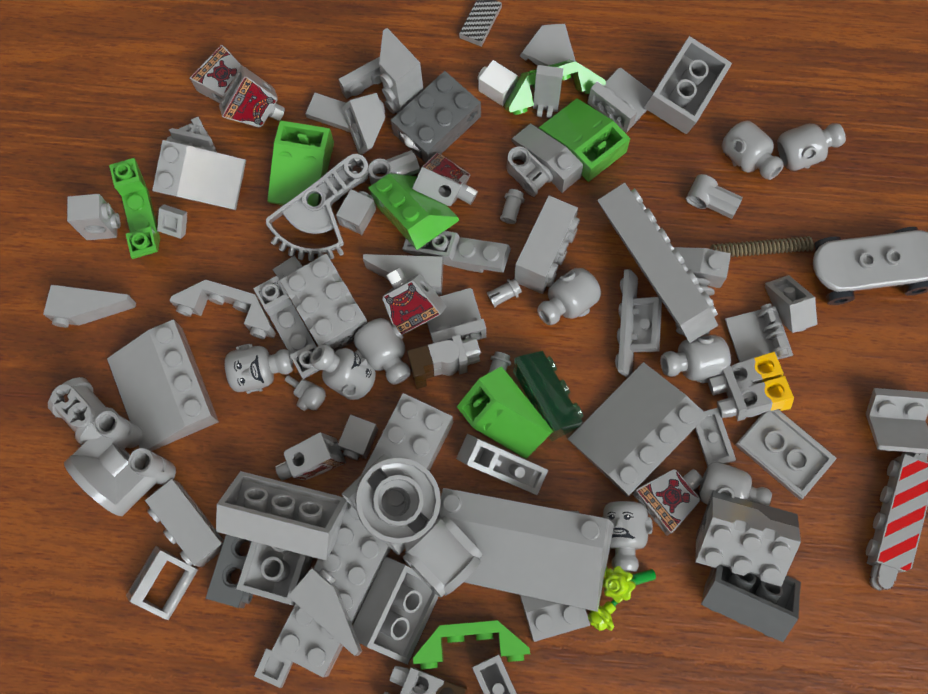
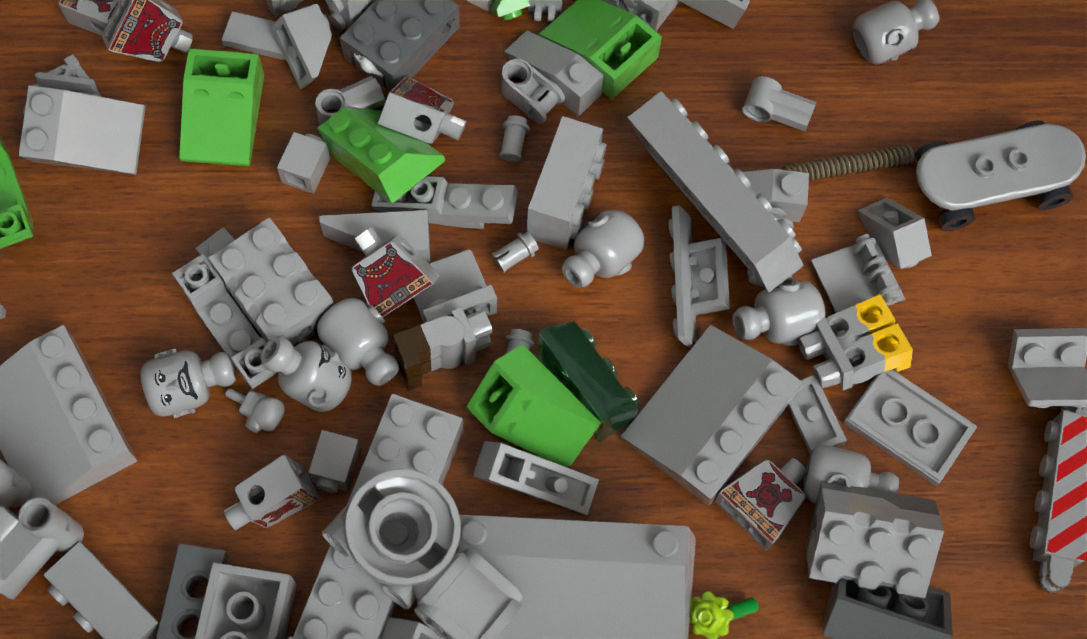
camera: 15 degrees left, 5 degrees down
(172, 221) = (49, 196): light grey plate -> none
(195, 298) = (89, 297): light grey slope -> none
(281, 515) = (239, 572): light grey slope -> none
(321, 217) = (255, 173): light grey arm -> none
(629, 532) = (716, 548): light grey piece -> none
(751, 150) = (820, 41): light grey piece -> none

